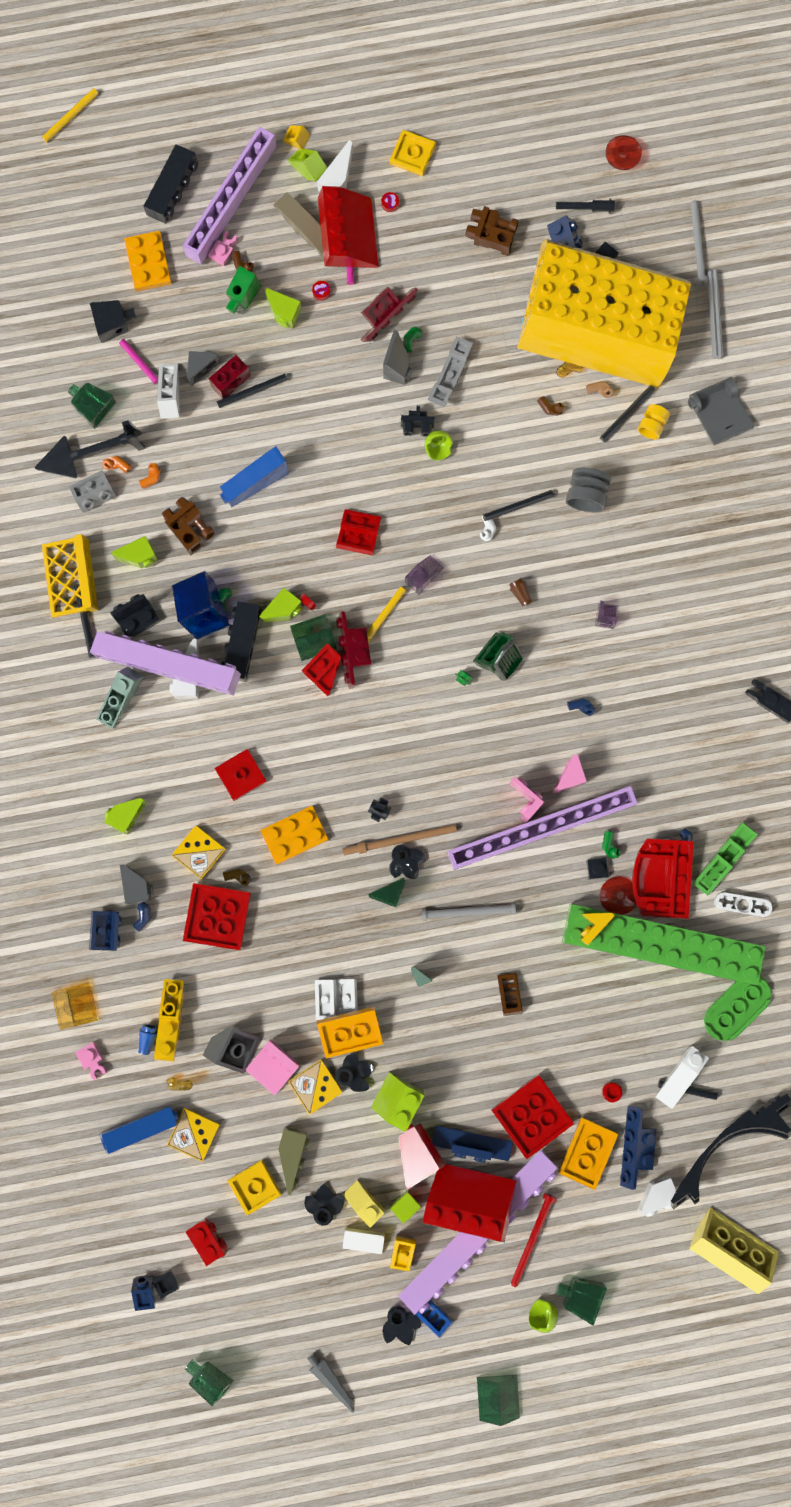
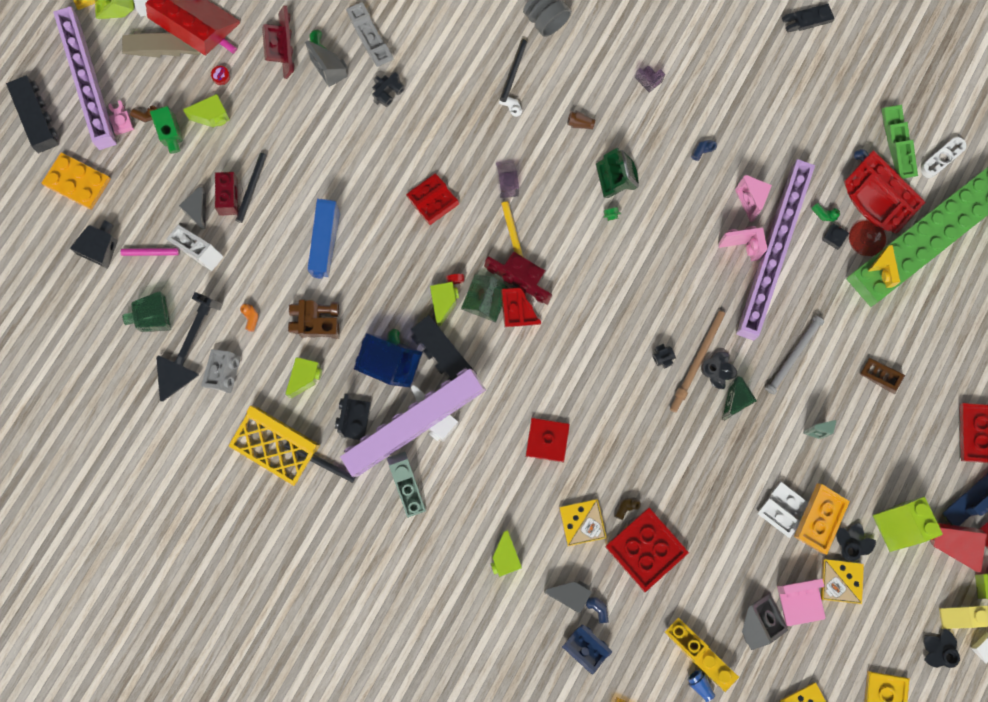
camera: 55 degrees left, 5 degrees down
(116, 462) = (214, 334): orange arm -> none
(173, 1085) = (756, 693): clear yellow arm -> none
(290, 1151) = (879, 639): olive slope -> none
(294, 835) = (629, 437): light orange plate -> none
(438, 445) = (417, 87): lime hair -> none

